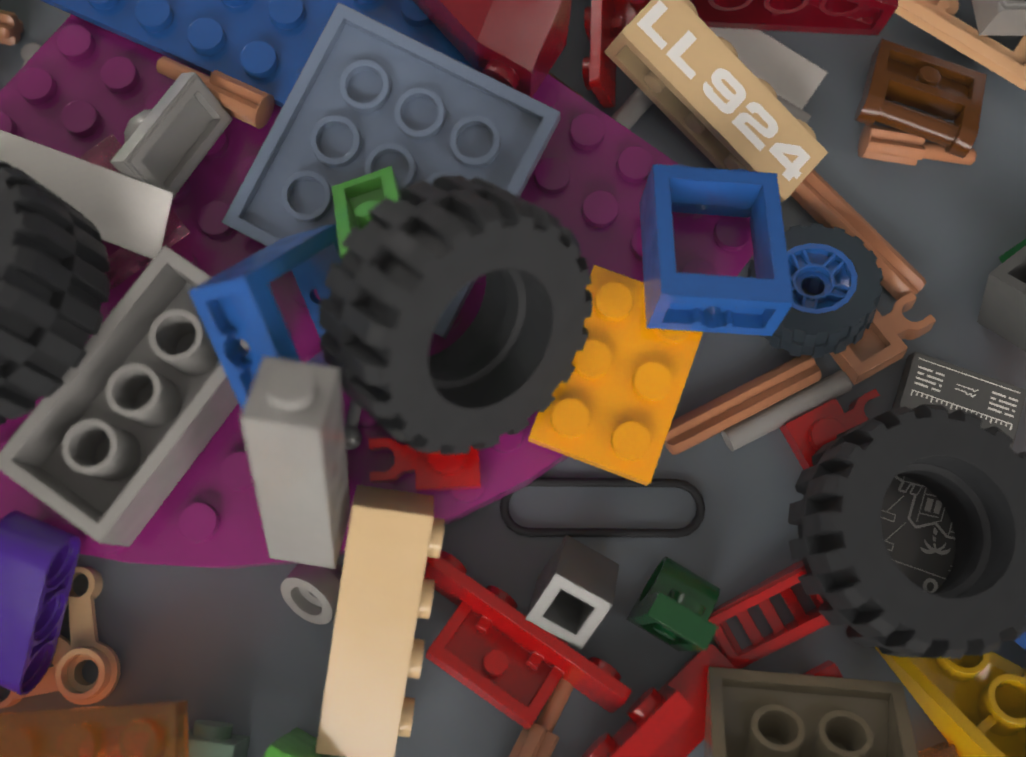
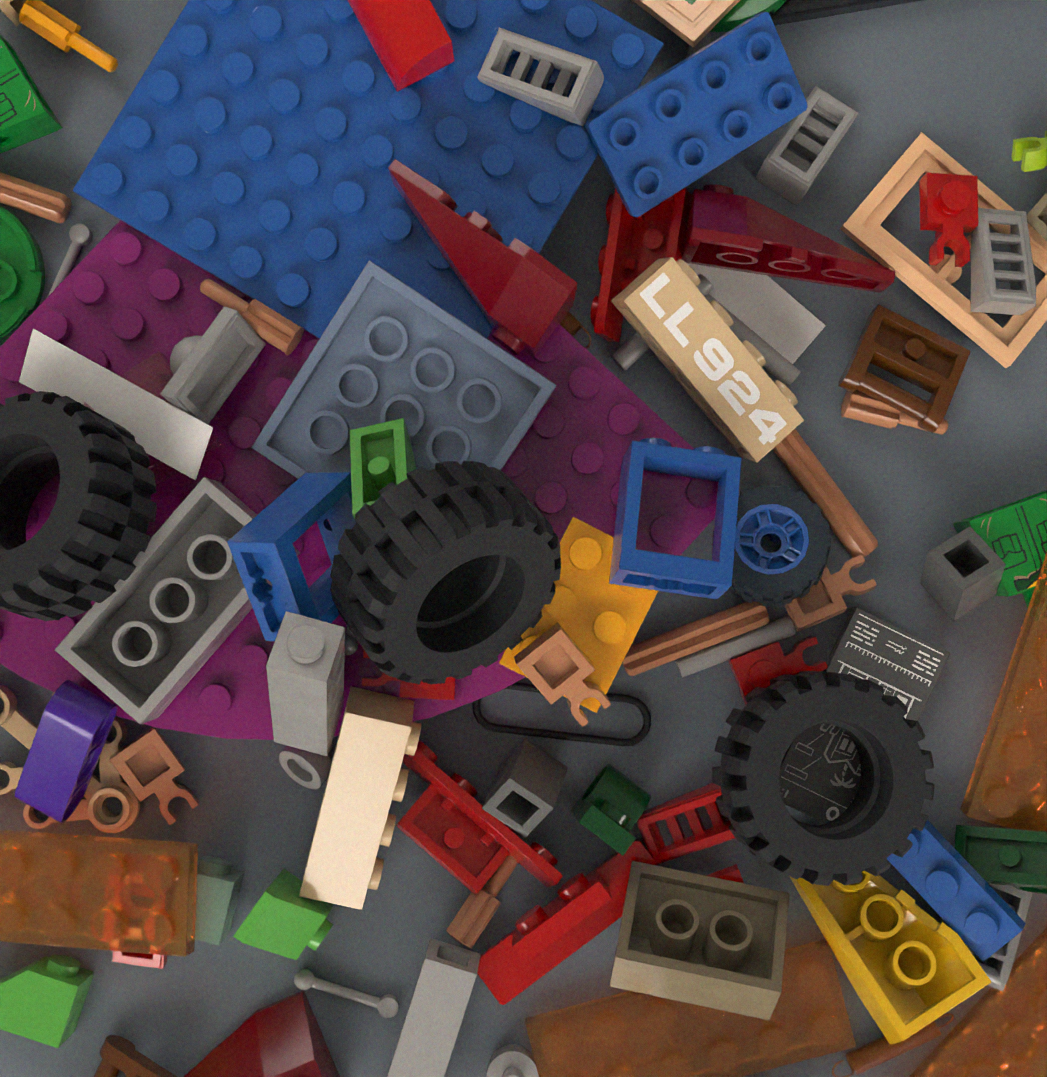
camera: 10 degrees right, 10 degrees up
(128, 618) = (150, 768): none -> nougat plate
(602, 428) = (559, 669): none -> nougat plate

